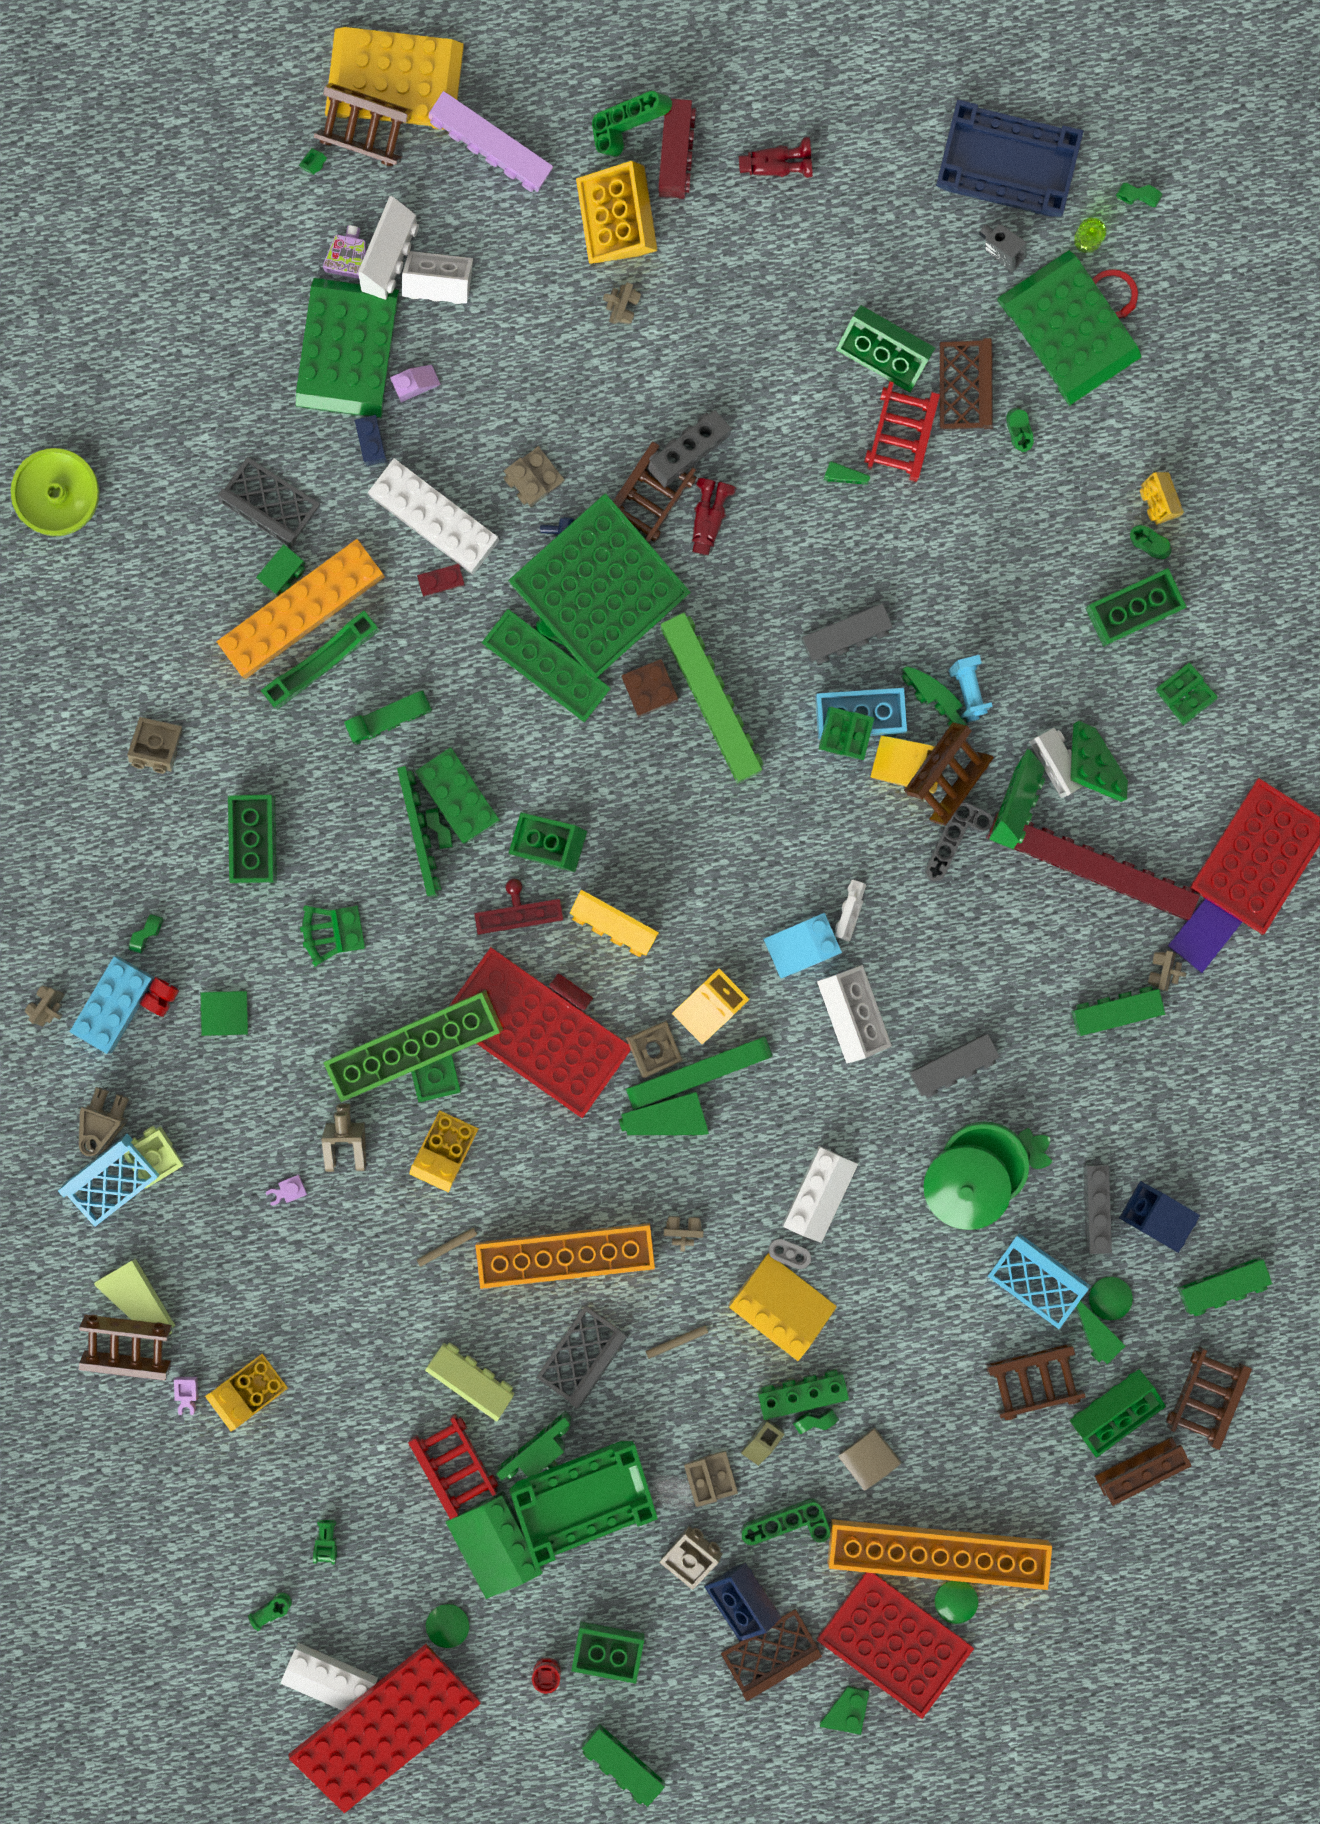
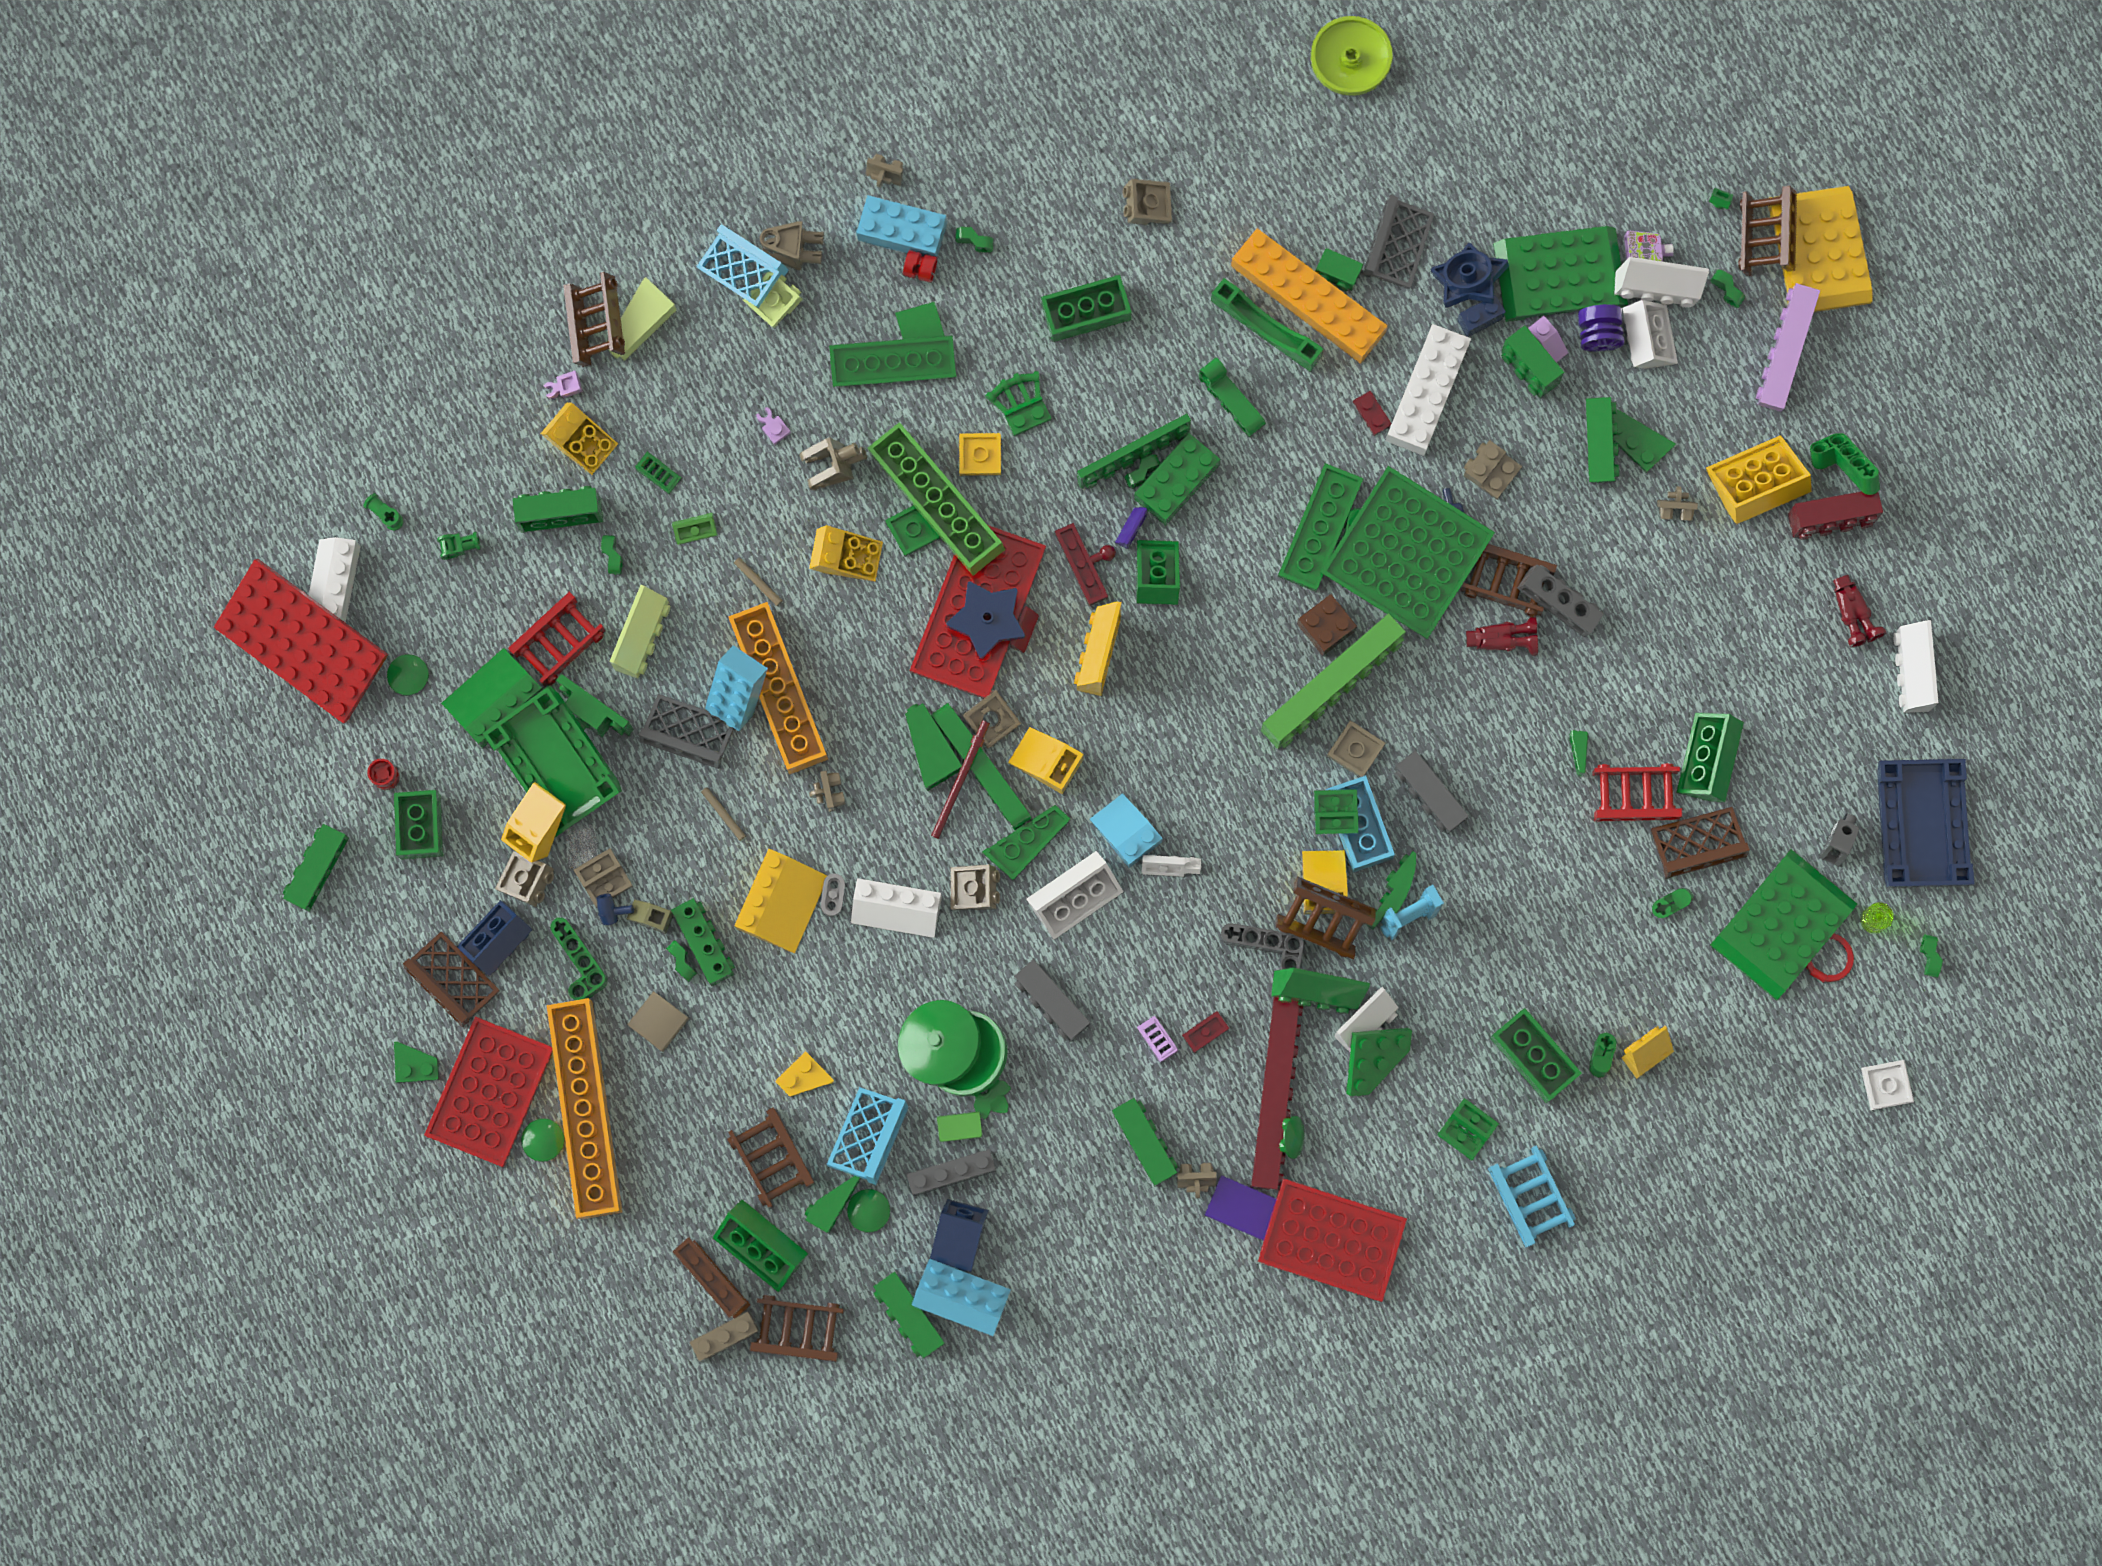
camera: 80 degrees right, 10 degrees down
(253, 1051) = (892, 361): none -> green plate
(289, 1331) = (662, 467): none -> green slope
(319, 1434) = (557, 509): none -> green brick
(326, 440) = (1469, 276): none -> dark blue plate
(372, 1390) = (615, 561): none -> green piece
(373, 1297) = (694, 528): none -> bright green slope
(375, 988) = (979, 454): none -> yellow plate
(402, 184) = (1725, 282): none -> green piece
(418, 323) = (1601, 328): none -> dark purple wheel
(435, 404) = (1532, 362): none -> green brick
(493, 855) = (1131, 527): none -> dark purple slope
(535, 358) = (1601, 440): none -> green brick
(542, 323) = (1640, 442): none -> green wing
(560, 1300) = (736, 688): none -> medium azure brick
(562, 1012) = (989, 633): none -> dark blue plate
(642, 1537) = (534, 824): none -> yellow slope
(678, 1071) = (977, 742): none -> dark red bar
(746, 1482) = (608, 911): none -> dark blue piece
(783, 695) = (1356, 749): none -> dark tan plate
(789, 1049) = (1022, 846): none -> green wing
(821, 1111) = (974, 887): none -> dark tan plate
(852, 117) = (1916, 667): none -> white slope
(962, 1328) = (803, 1076): none -> yellow wing
(1024, 922) = (1205, 1032): none -> dark red plate
(1036, 964) = (1168, 1053): none -> lavender slope
(1054, 1188) = (959, 1126): none -> bright green slope
(1153, 866) = (1293, 1137): none -> green dish
(1199, 1474) = (724, 1336): none -> dark tan brick
(1223, 1231) = (961, 1297): none -> medium azure brick
(1251, 276) = (1887, 1085): none -> white tile
(1261, 671) = (1520, 1213): none -> medium azure fence

